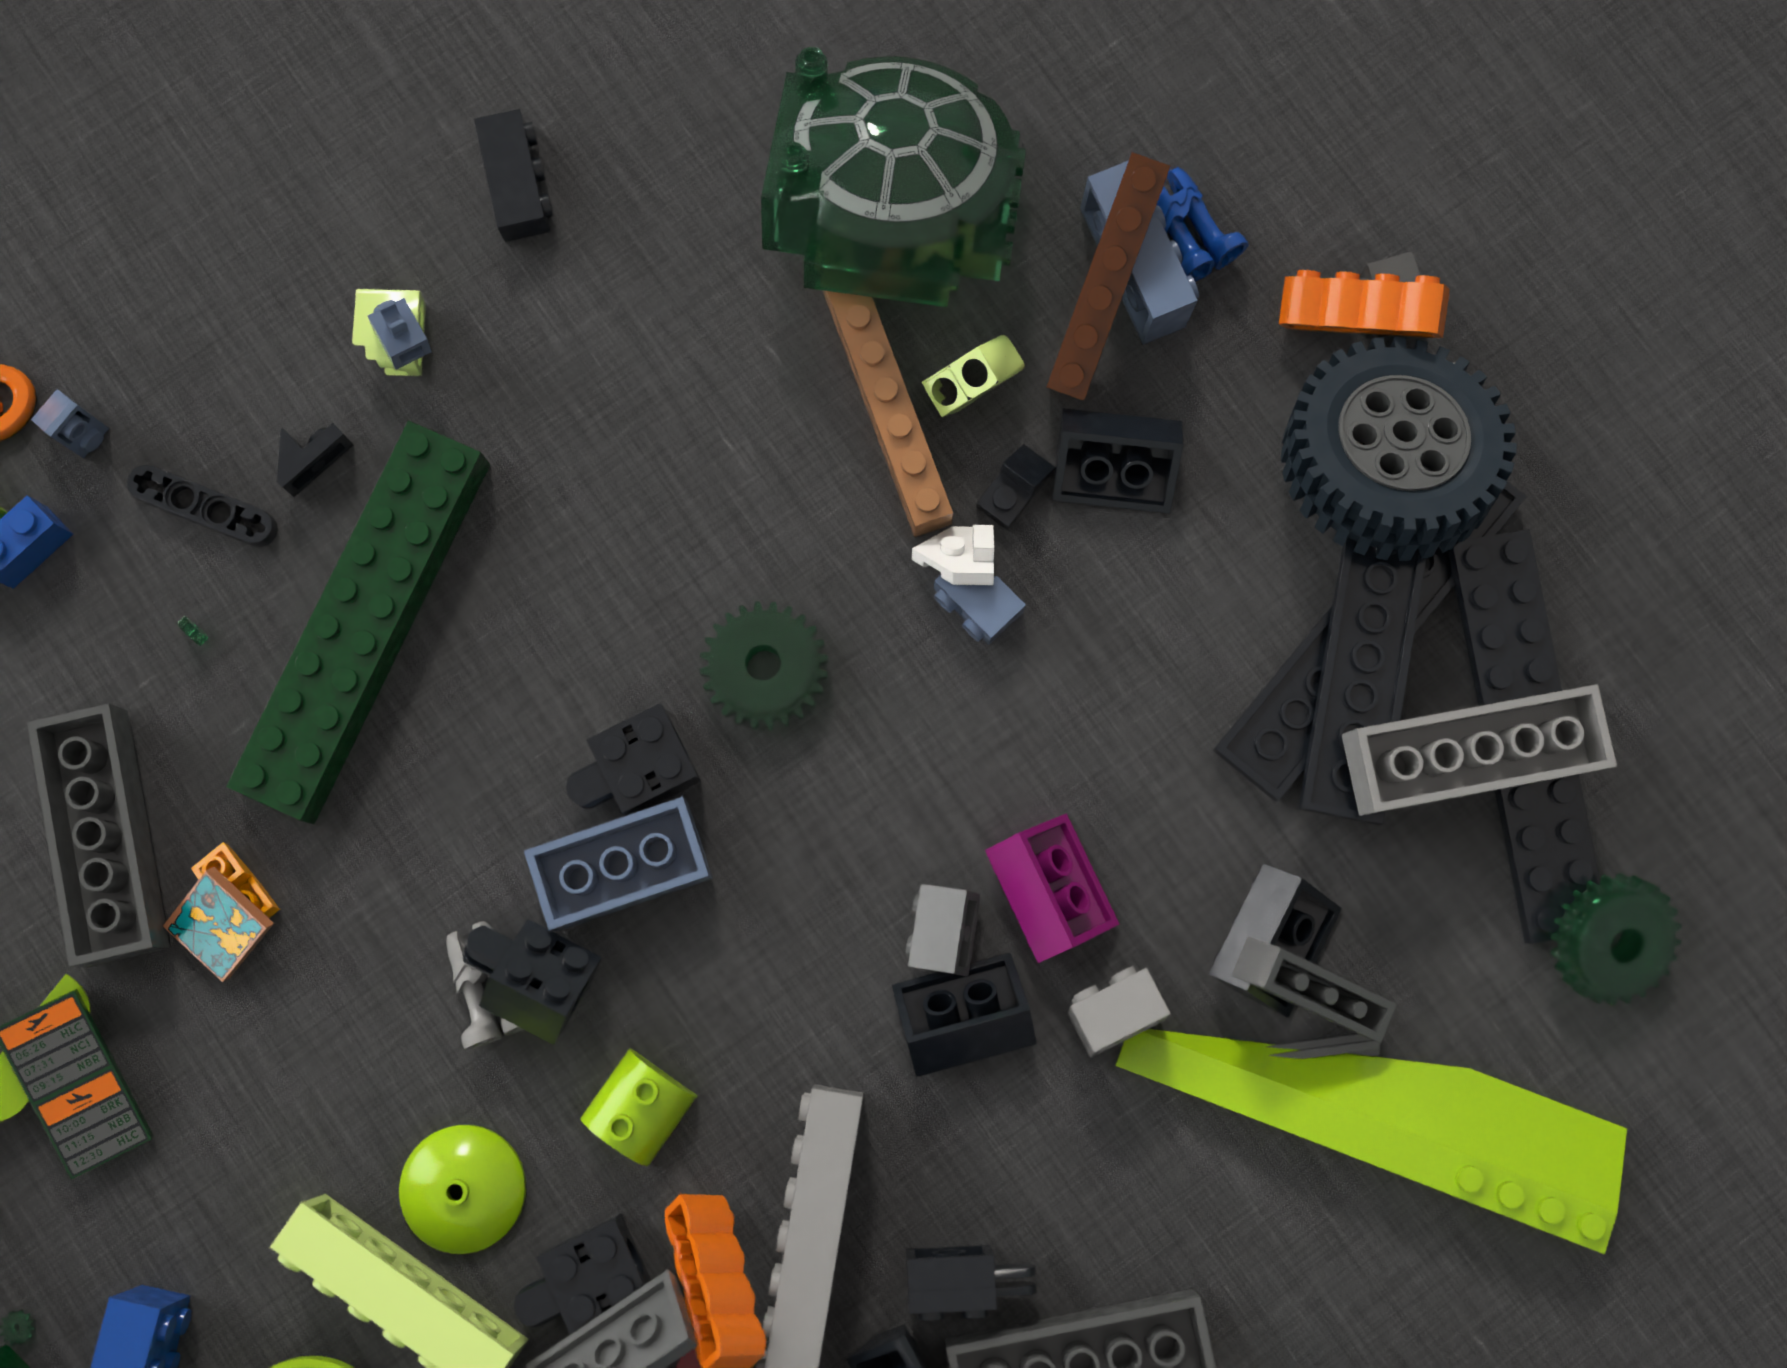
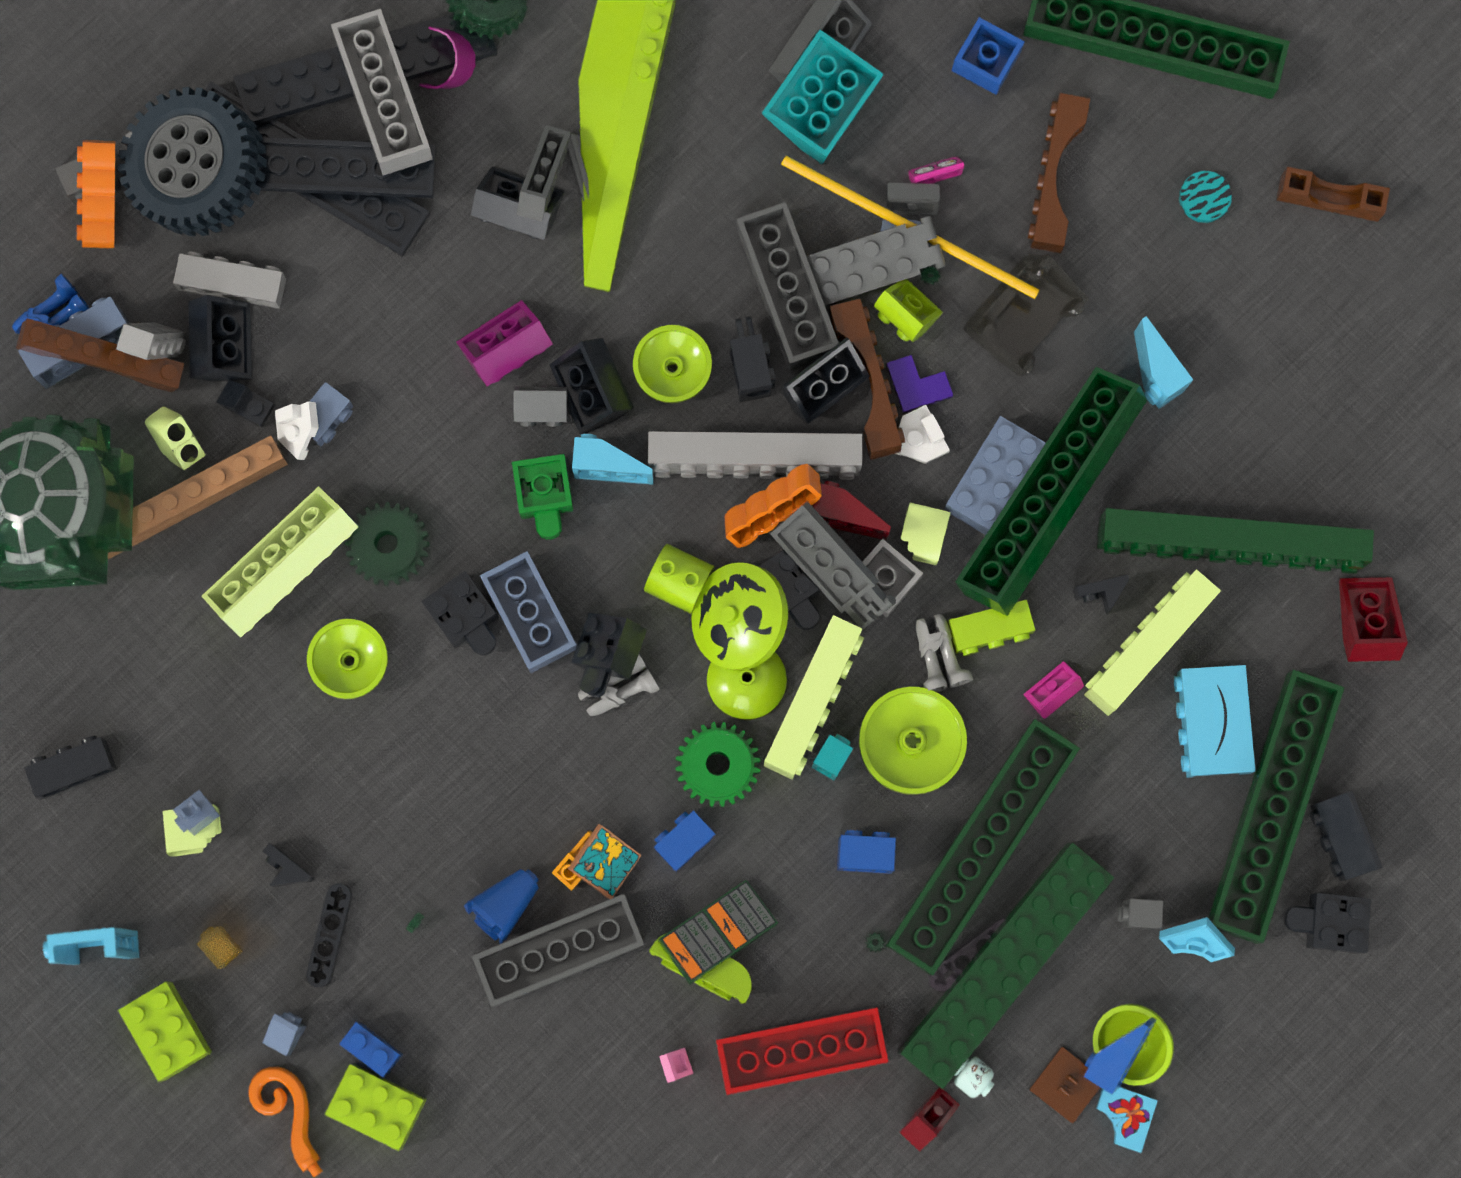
camera: 100 degrees left, 0 degrees up
(109, 259) = (165, 1031): none -> lime brick
(185, 763) = (503, 904): none -> blue cone
(215, 348) = (218, 946): none -> clear yellow brick
(227, 1052) = (684, 840): none -> blue piece
(237, 167) = (117, 943): none -> medium azure panel
(300, 1117) = (720, 742): none -> green gear
(300, 1313) = (832, 756): none -> teal brick
(359, 623) = (393, 809): dark green brick -> none
(547, 1199) = (740, 616): none -> lime dish
(579, 561) = (334, 645): none -> lime dish
(757, 501) = (279, 561): none -> yellowish green brick
(801, 914) = (544, 492): none -> green brick
(835, 1013) = (603, 462): none -> medium azure slope
(981, 1182) = (672, 346): none -> lime dish
(1118, 349) = (151, 341): none -> light grey brick
(1118, 1011) = (572, 285): light grey brick -> none
(1207, 486) = (229, 280): none -> light grey brick
(1520, 889) = (464, 60): none -> magenta piece

